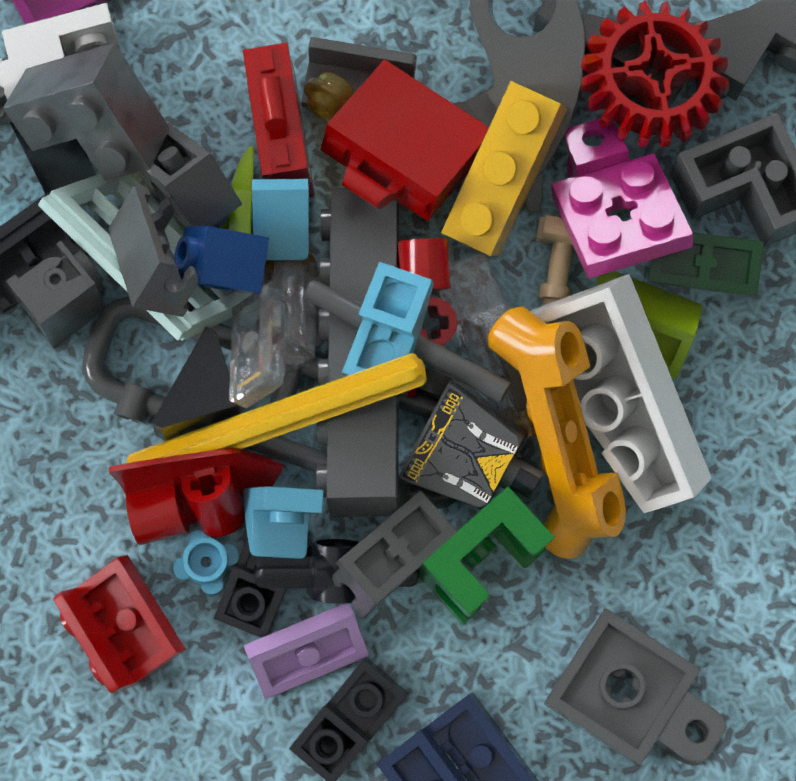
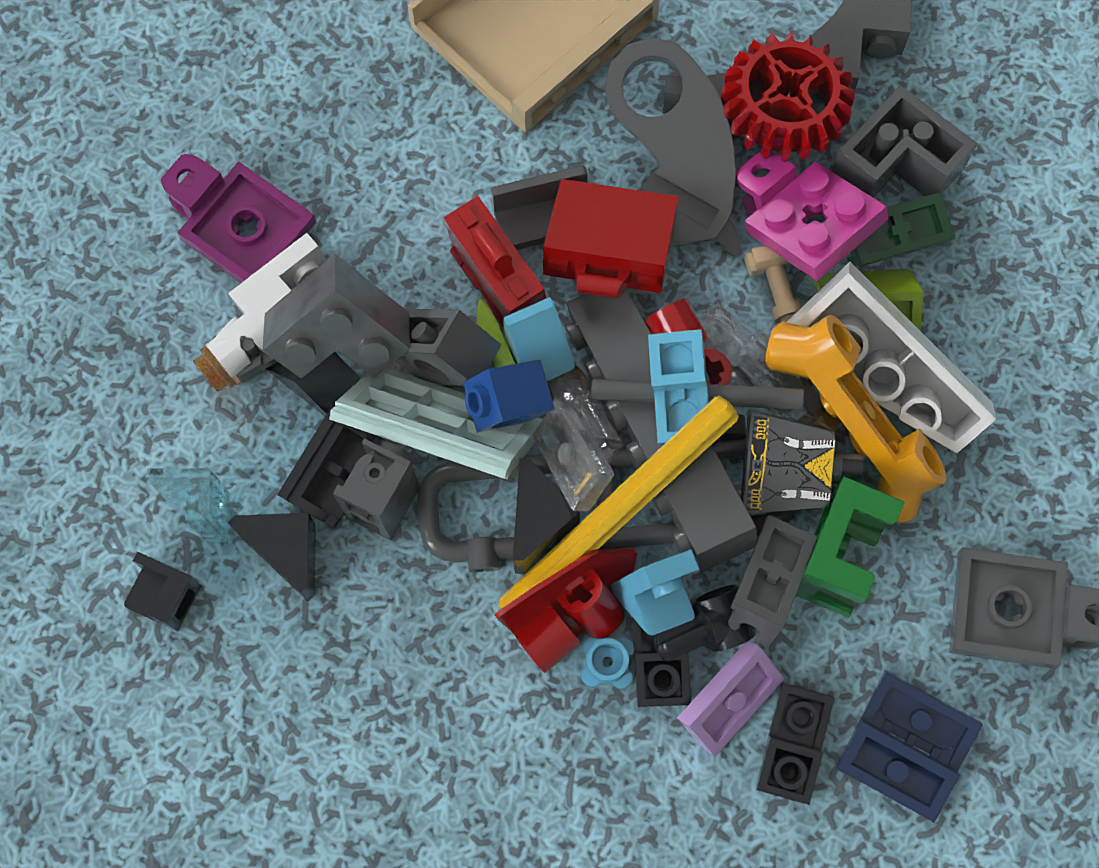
camera: 15 degrees left, 5 degrees down
(119, 625) = (561, 750): red bracket -> none
(147, 256) = (446, 419): dark grey hinge -> none
(327, 94) = (527, 229): clear yellow plate -> none
(504, 169) = (703, 223): yellow brick -> none

